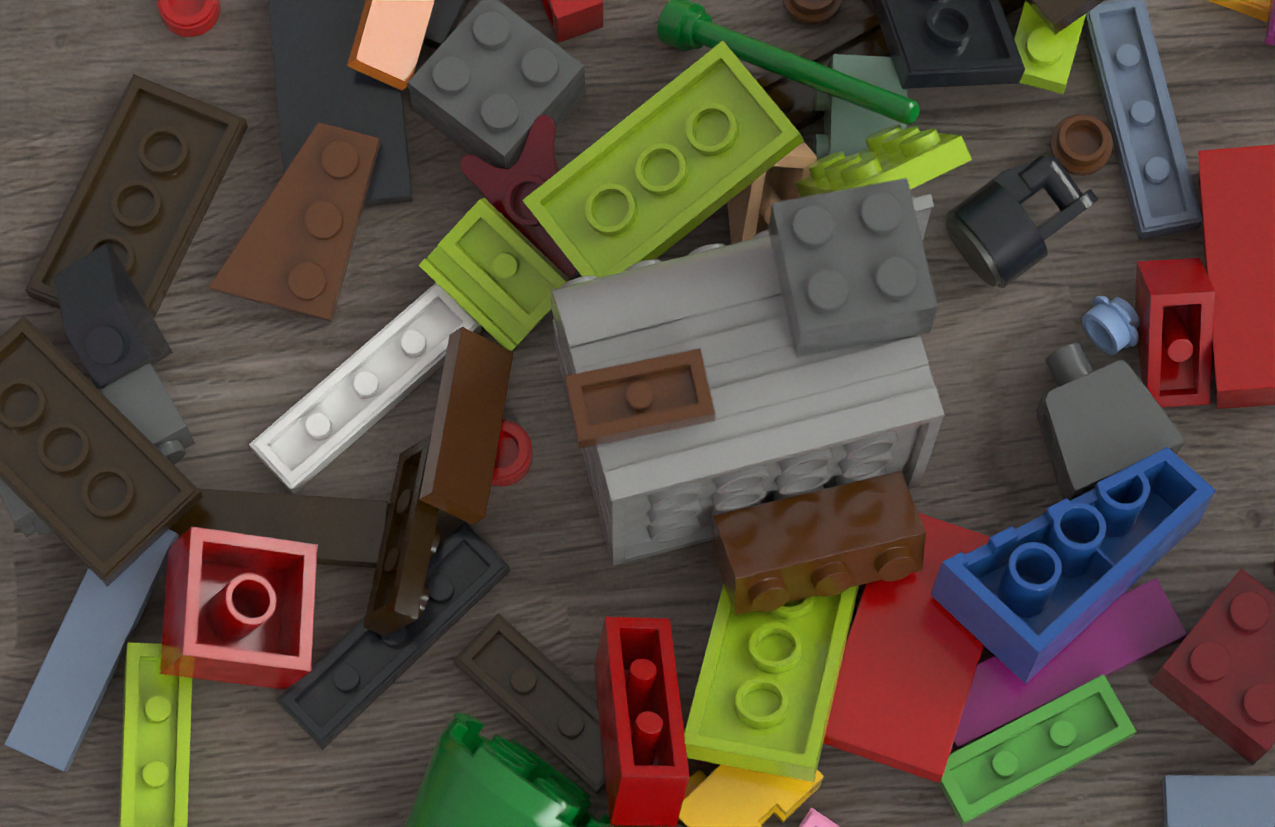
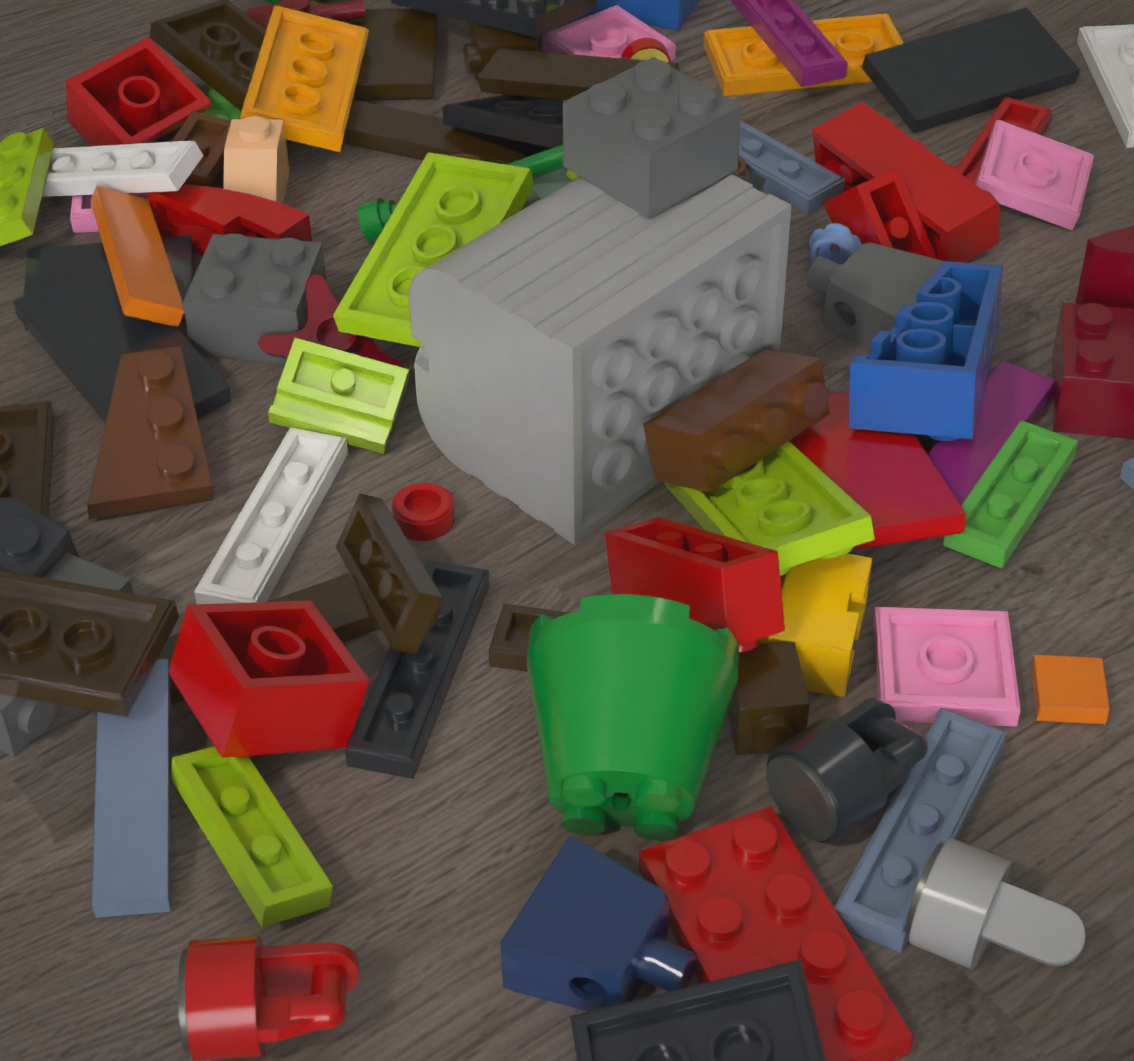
camera: 30 degrees left, 30 degrees down
(466, 426) = (387, 482): reddish brown tile -> none
(639, 398) = (546, 268): reddish brown plate -> none

